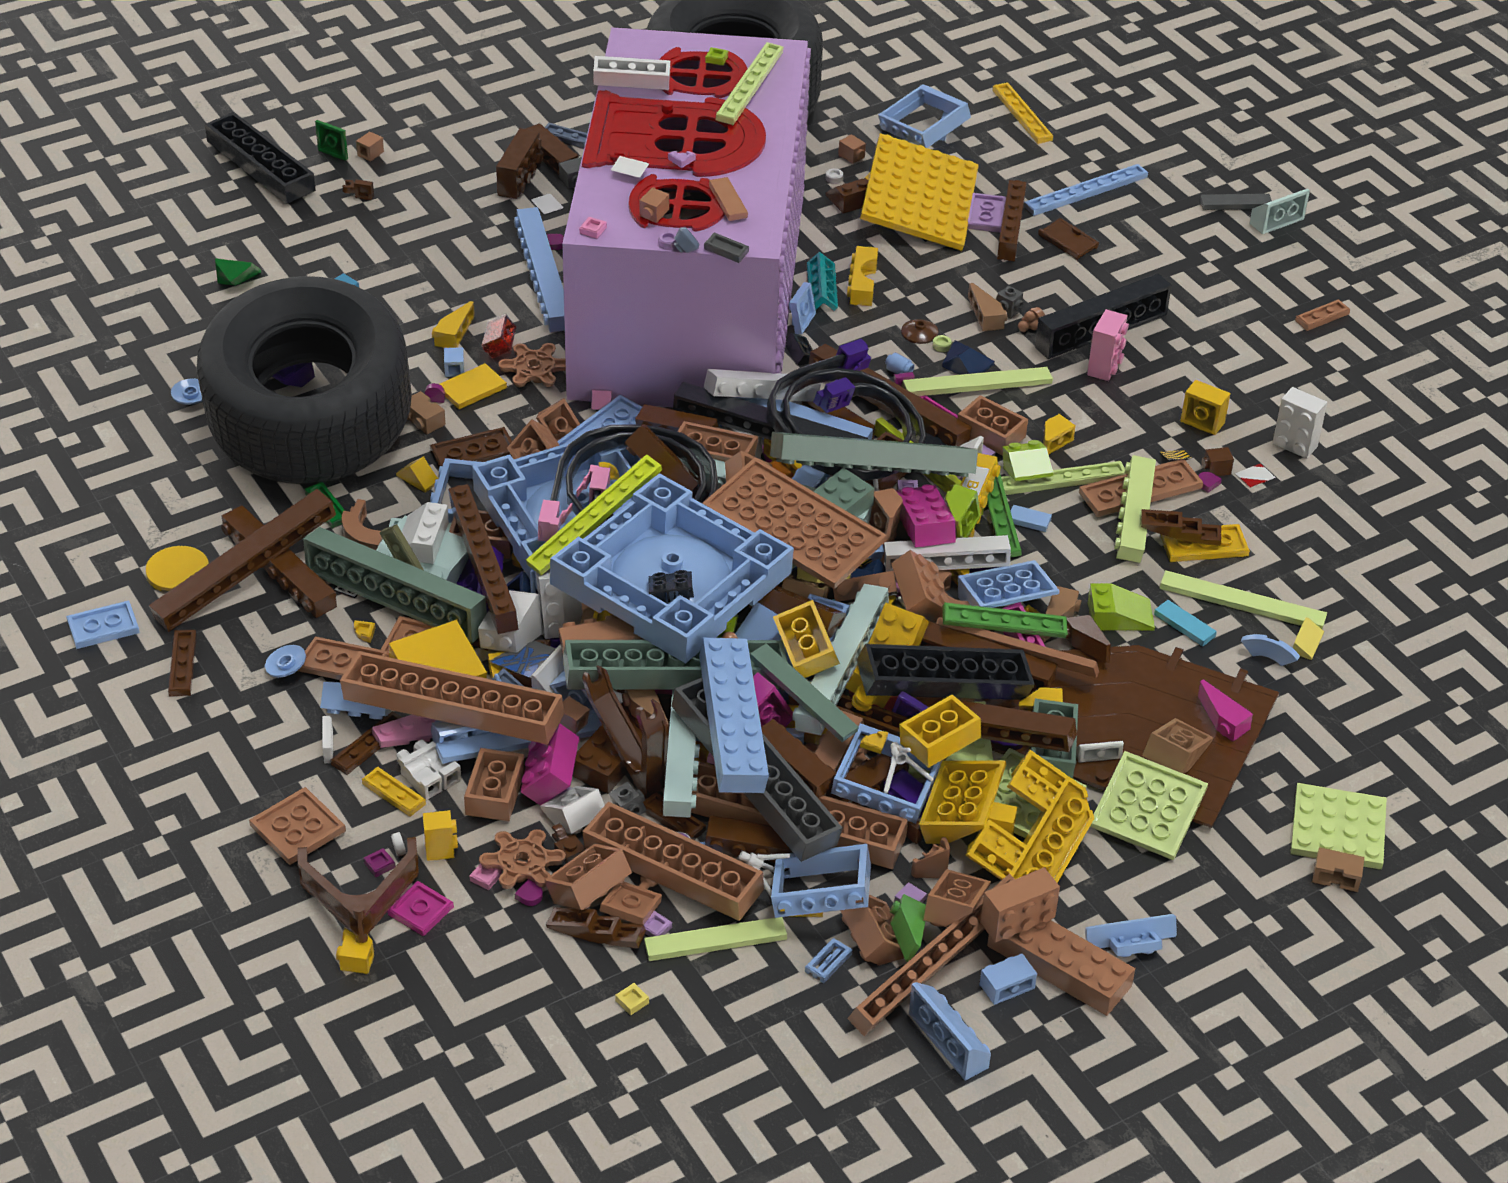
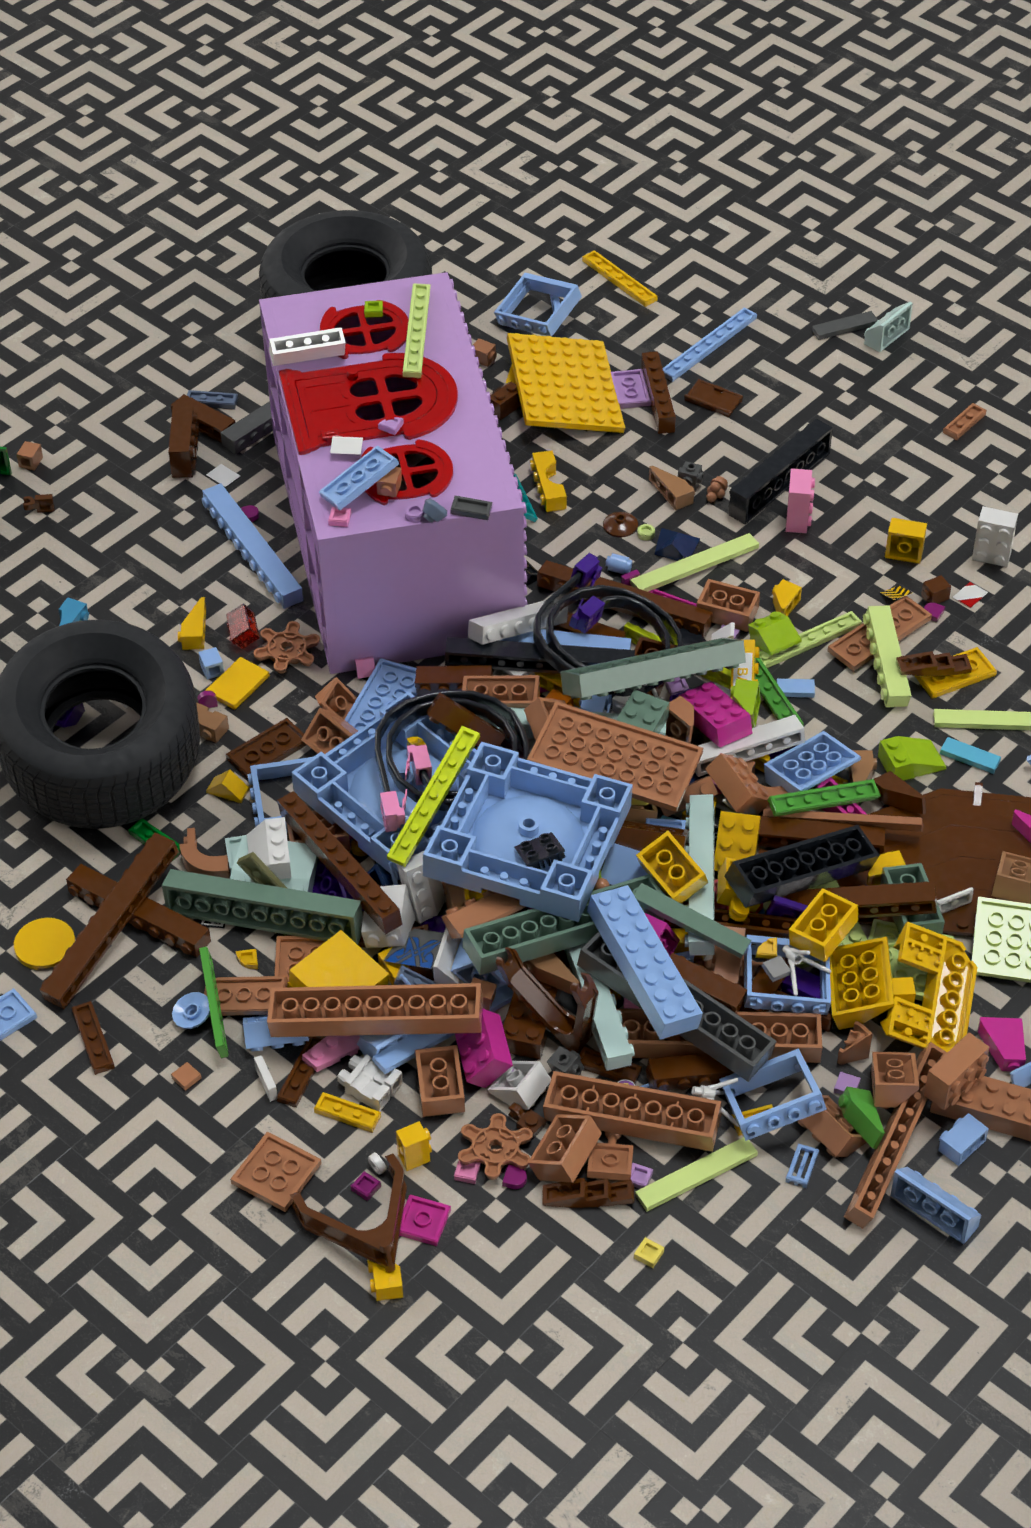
camera: 15 degrees left, 5 degrees up
(253, 719) = (186, 1076): none -> nougat tile
(307, 658) = (214, 1003): none -> bright green tile
(624, 194) = (358, 477): none -> light blue tile
(728, 198) = (451, 457): nougat tile -> none
(875, 761) = (776, 968): none -> light grey tile
(1095, 896) = (1005, 1041): none -> dark pink slope

